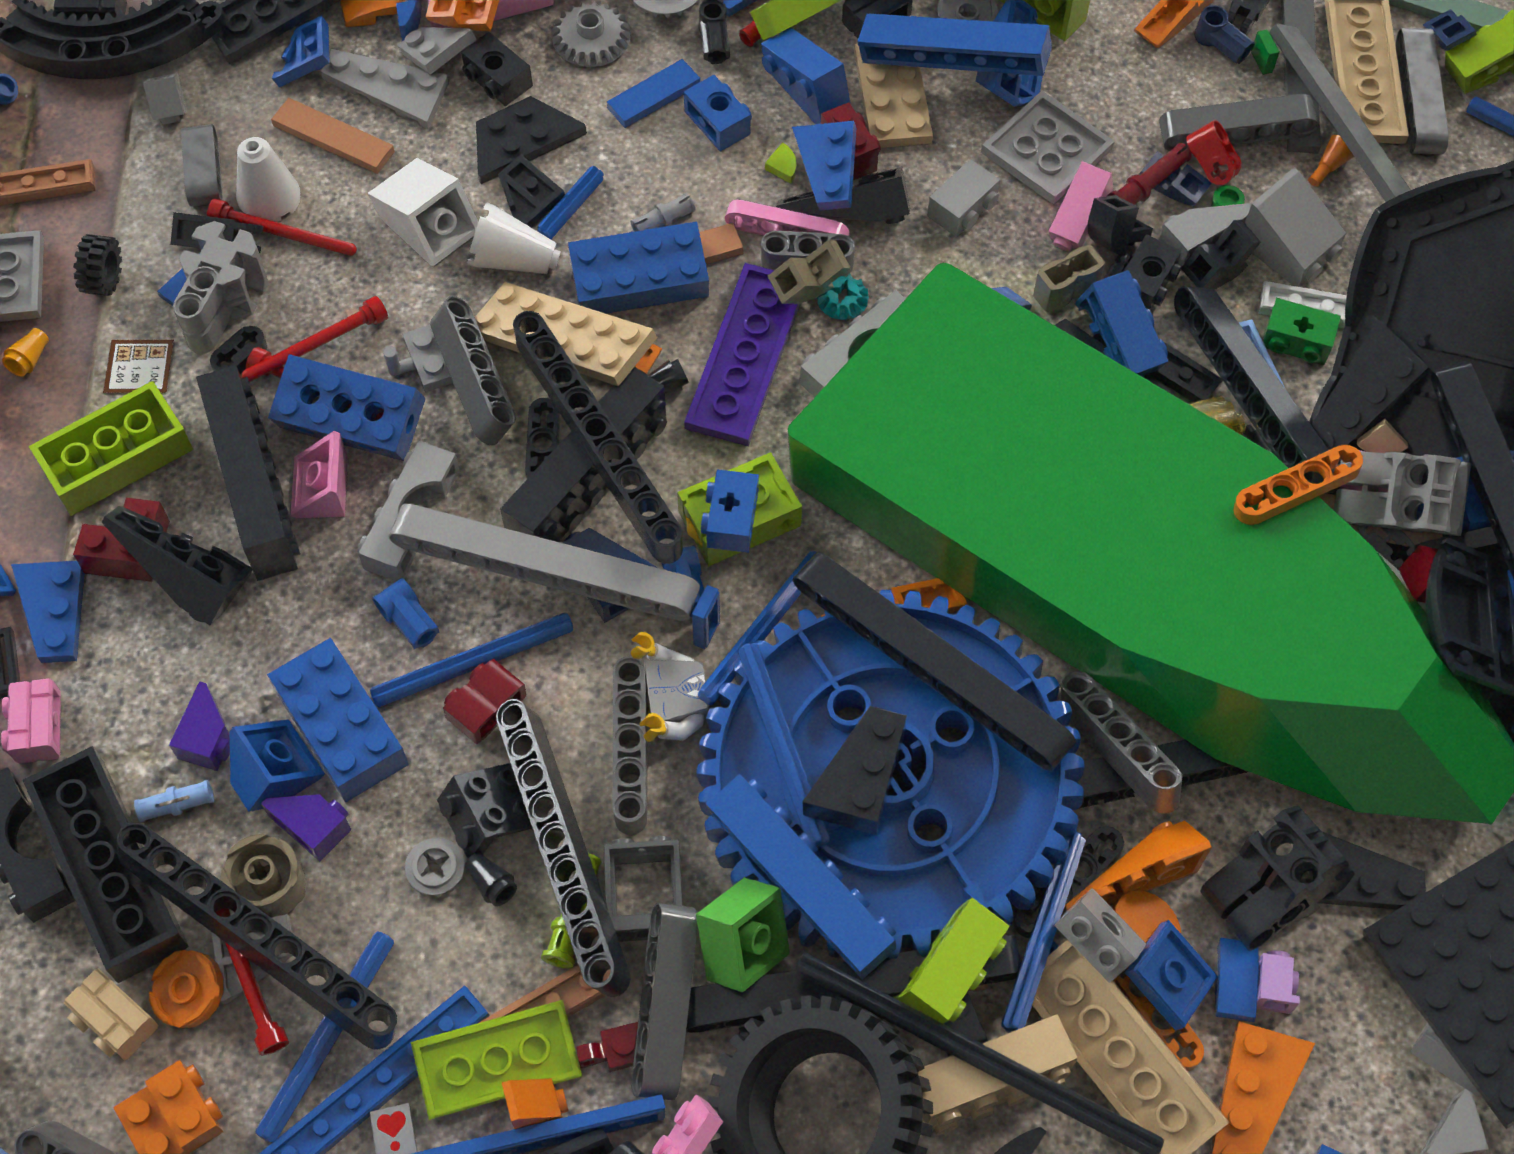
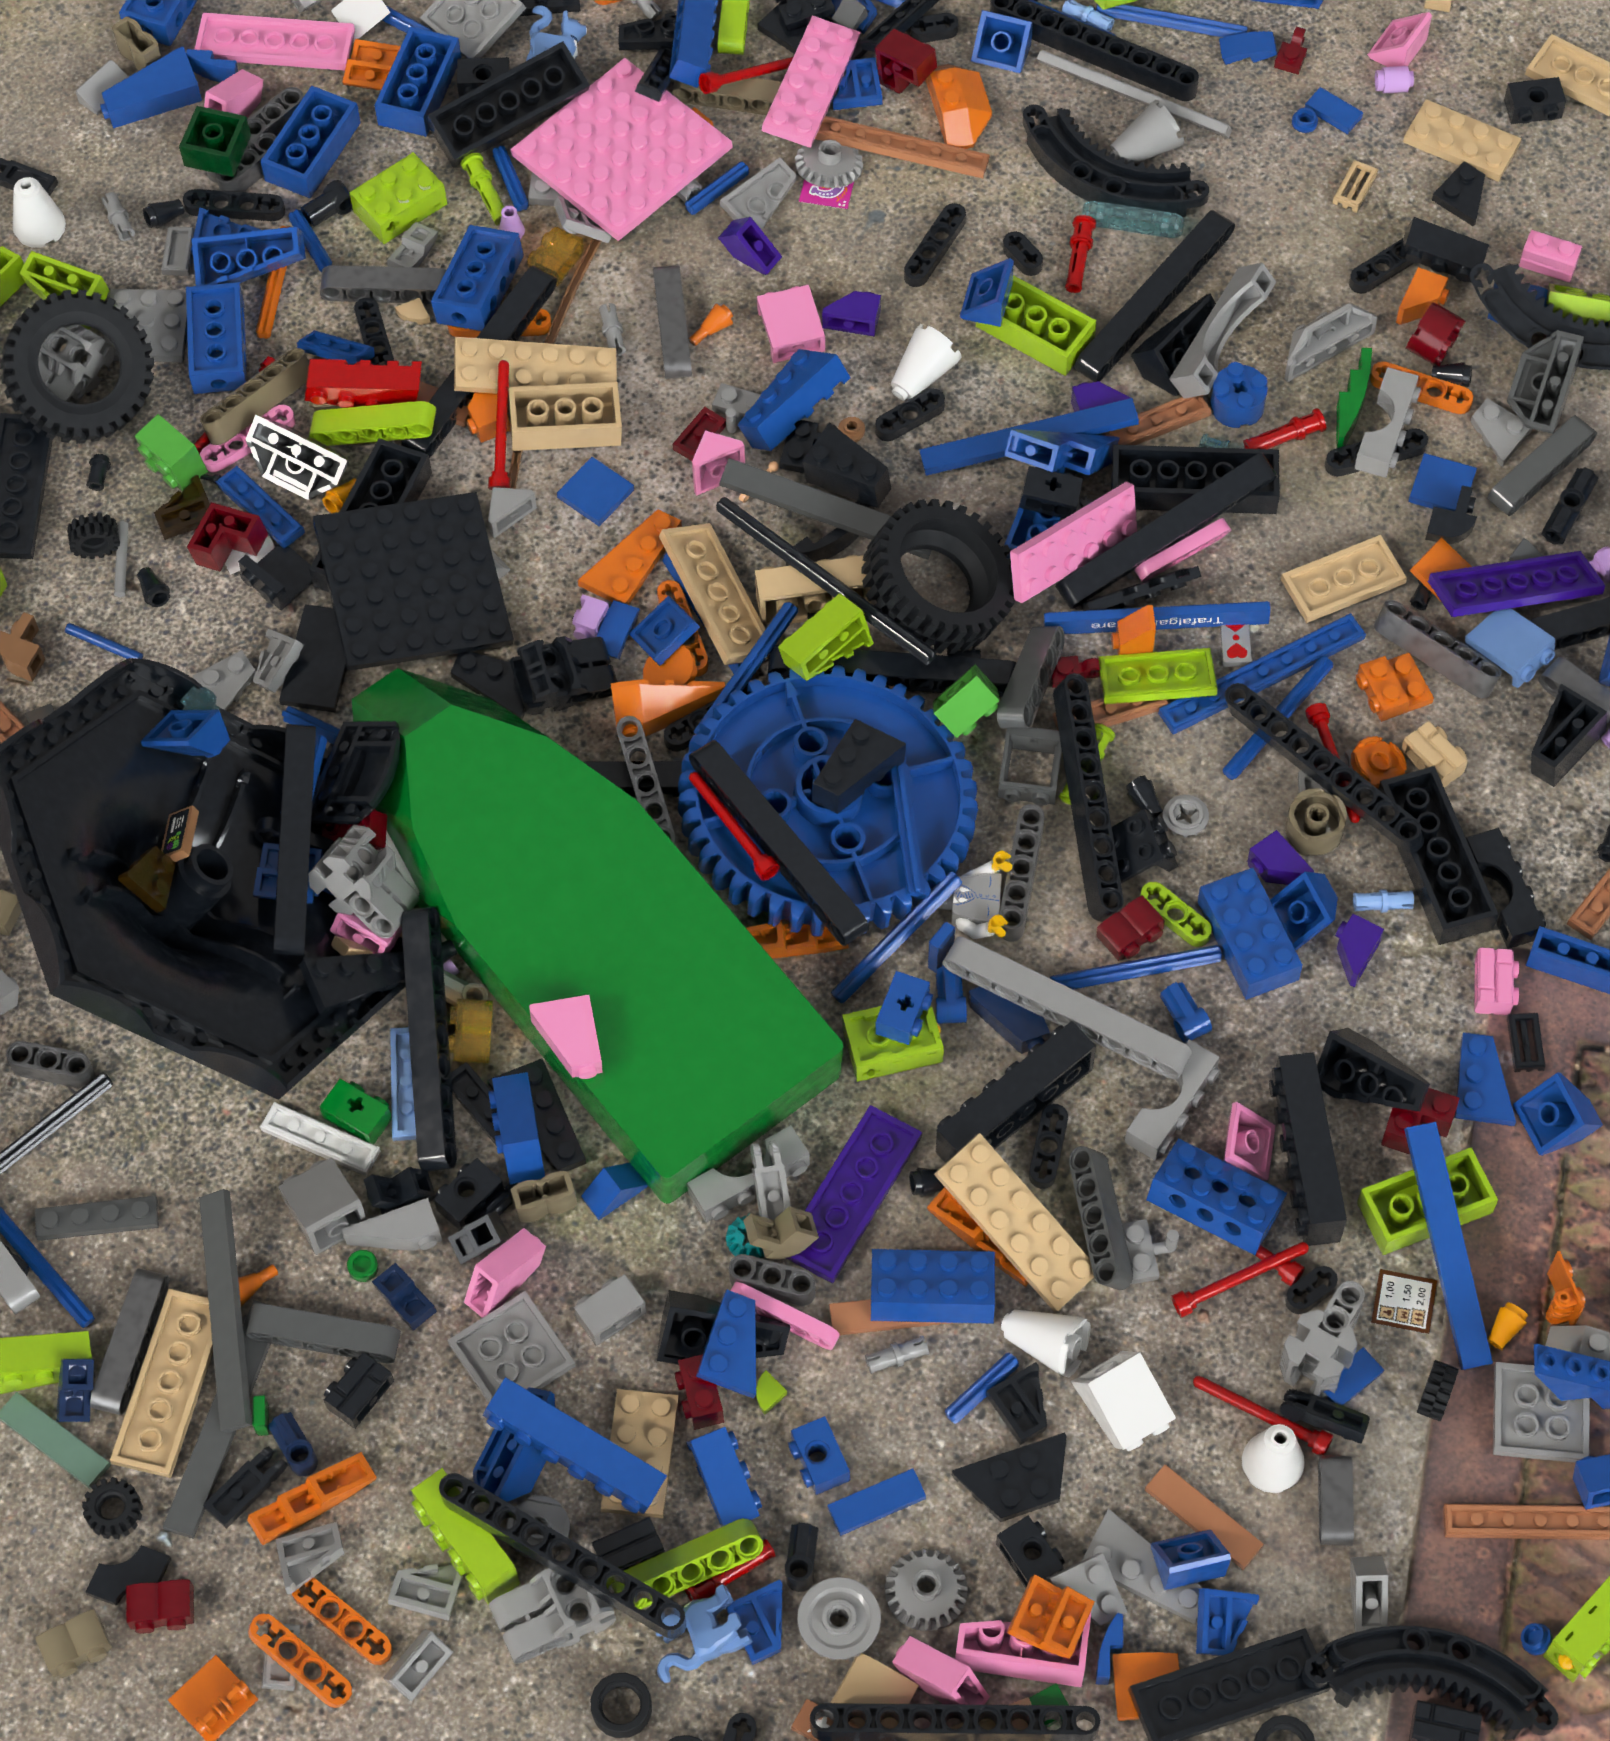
camera: 165 degrees left, 0 degrees up
(86, 394) = (1448, 1246): none -> blue tile
(338, 76) = (1190, 1559): none -> blue slope
(459, 739) = (1176, 926): none -> lime beam
(598, 448) = (1005, 1094): black beam -> none
(802, 876) = (916, 721): blue brick -> none
(831, 319) = (770, 1182): none -> light grey hinge
(940, 625) = (764, 865): none -> red piece
(1097, 358) = (570, 1033): none -> bright pink slope
(1100, 935) = (710, 650): light grey brick -> none
(1139, 187) = (442, 1283): dark red pin -> none
(1183, 84) = (358, 1389): none -> black brick
(1211, 149) = (362, 1297): red piece -> none
(1296, 482) = (449, 884): orange beam -> none

